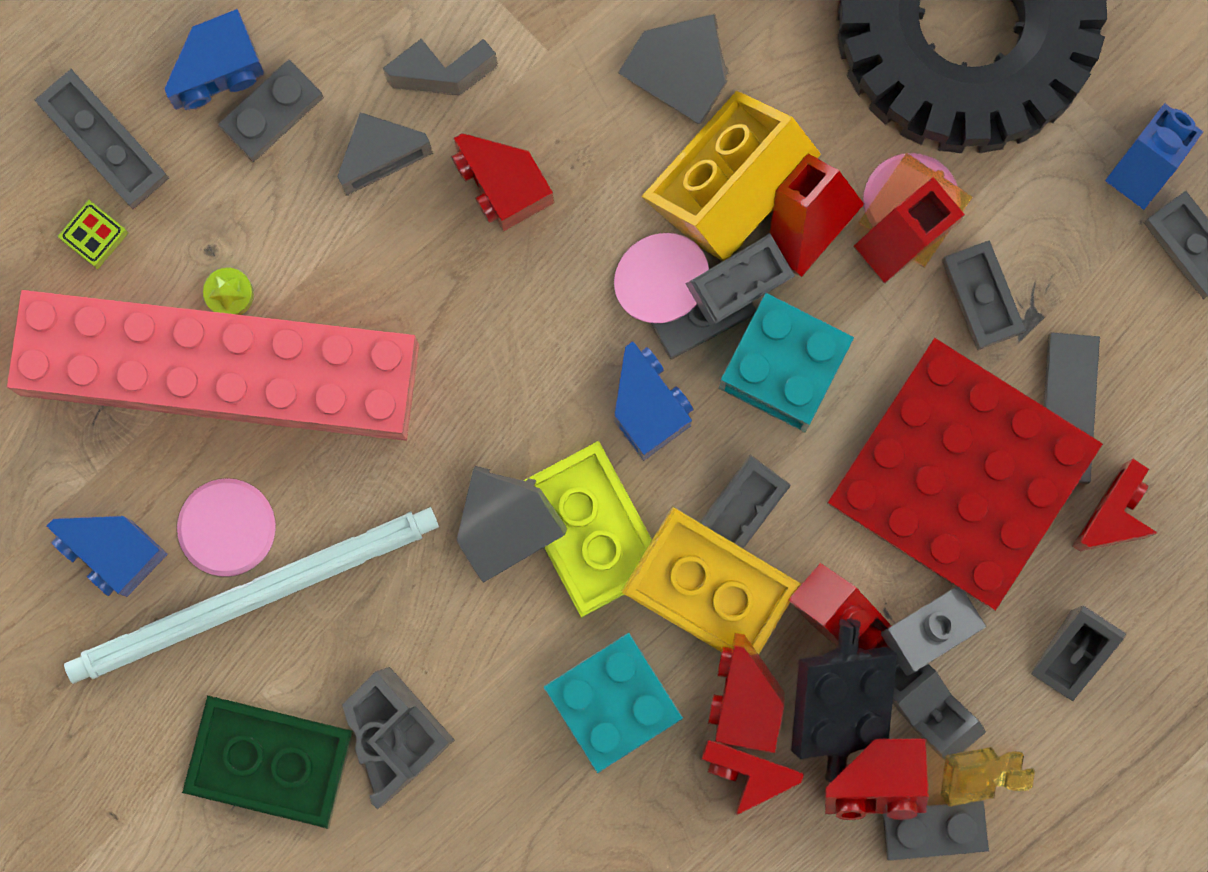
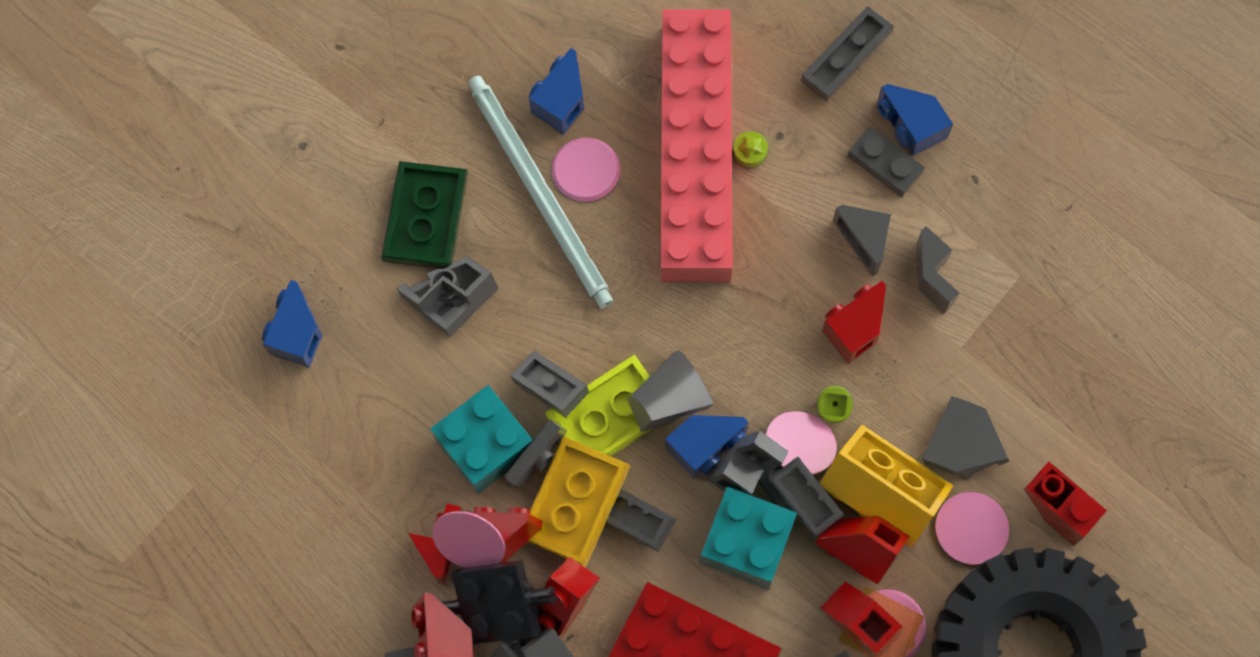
camera: 85 degrees right, 10 degrees down
(93, 234) = (779, 57): lime tile -> none
(505, 522) = (607, 349): dark grey slope -> none
(544, 604) = (550, 384): none -> dark grey plate
(576, 443) = (669, 394): none -> dark grey slope
(612, 227) = (834, 404): none -> lime tile
(644, 630) = (537, 454): none -> dark grey plate
(689, 355) = (746, 462): none -> dark grey slope
(764, 729) = (468, 540): none -> bright pink piece
(796, 74) = (972, 528): none -> bright pink piece

